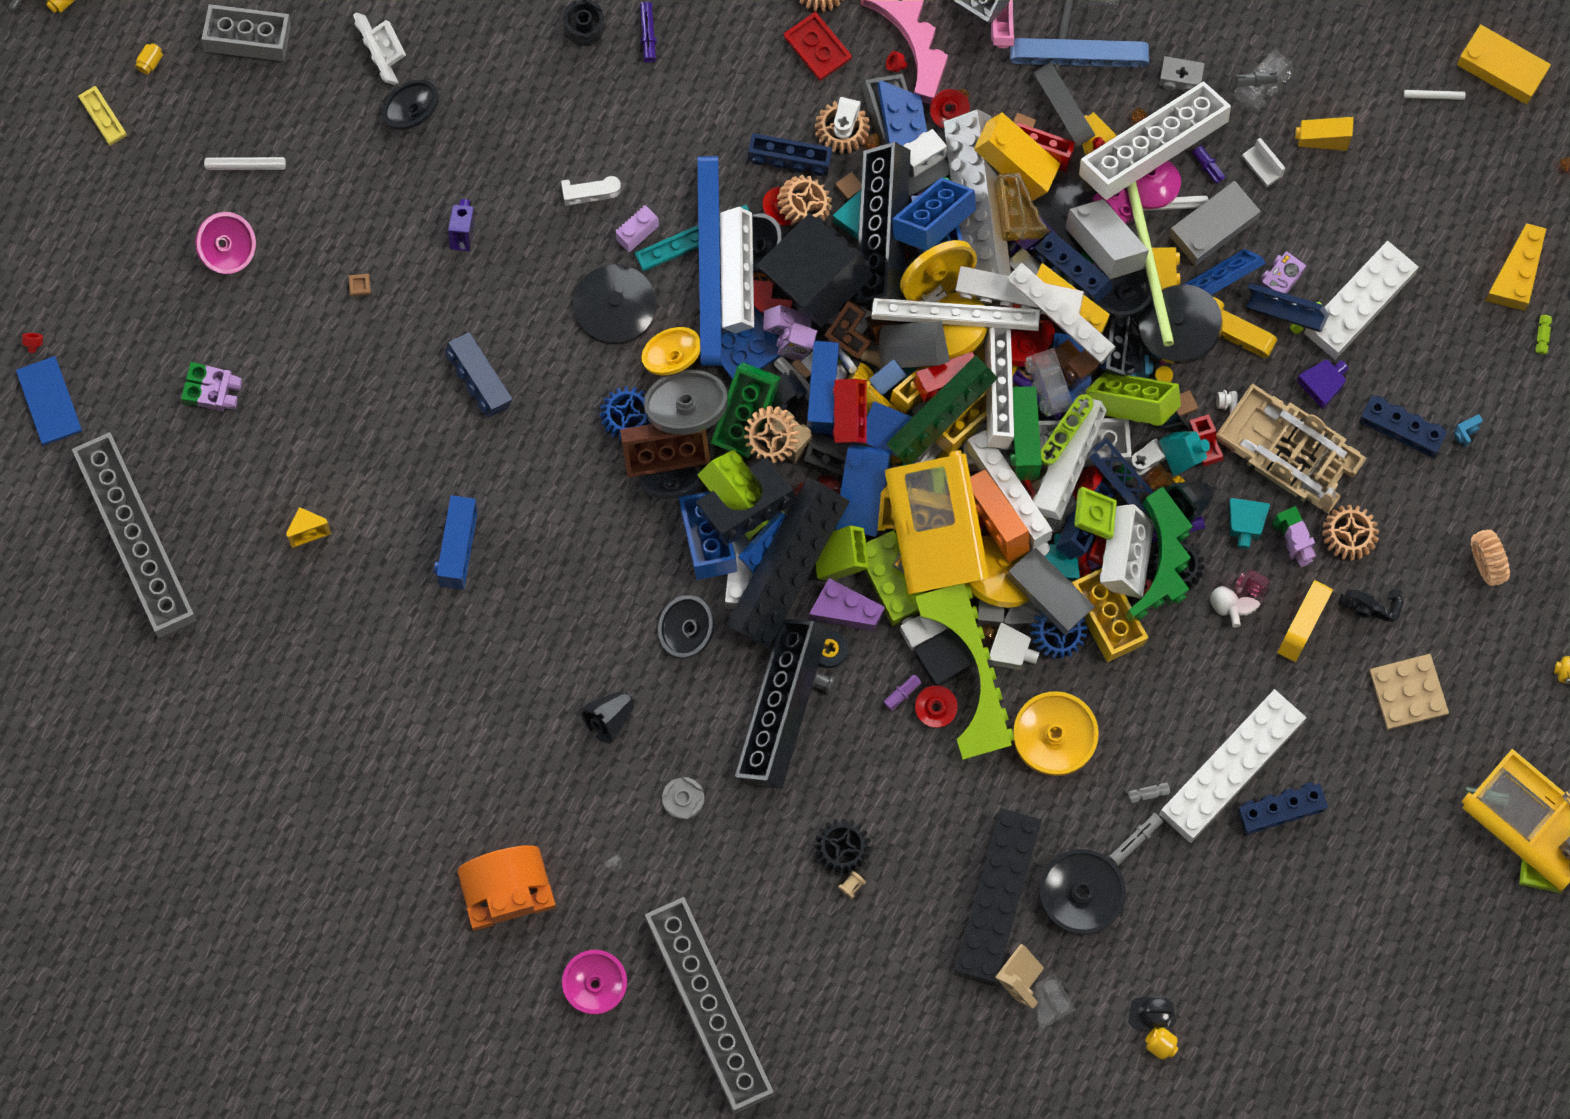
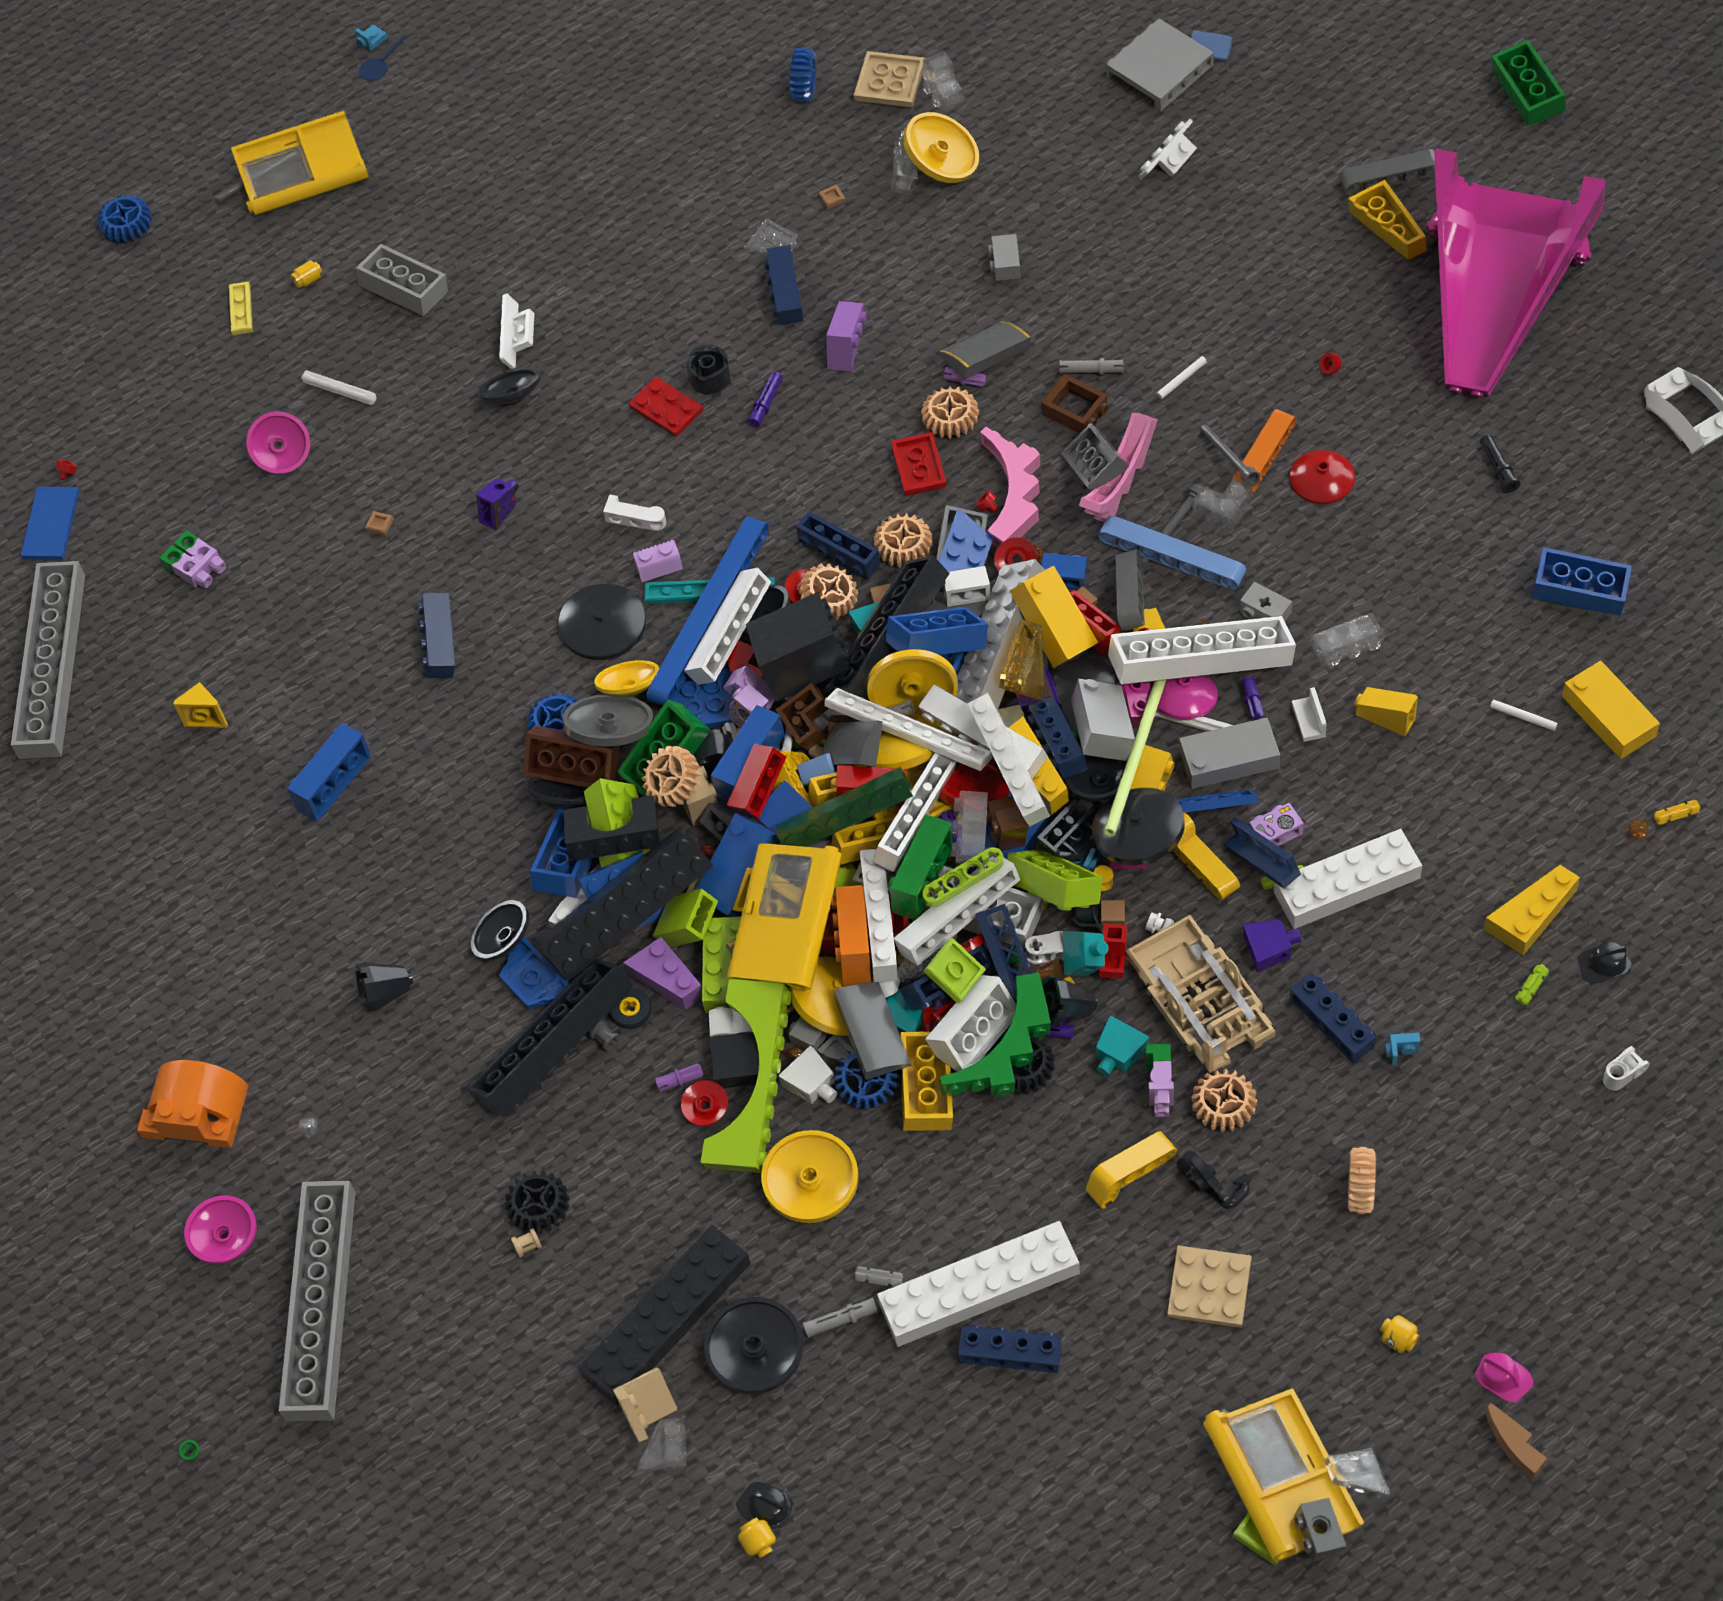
camera: 35 degrees right, 15 degrees down
(560, 72) = (665, 406): none -> red plate
(682, 804) = (405, 1098): light grey tile -> none
(735, 656) = (532, 976): none -> blue wing
(846, 115) = (906, 527): white piece -> none
(997, 101) = (1069, 567): none -> blue piece
(1227, 602) = (1059, 1122): white piece -> none
(1255, 583) = (1087, 1102): clear pink bracket -> none
(1256, 78) = (1337, 631): dark grey pin -> none

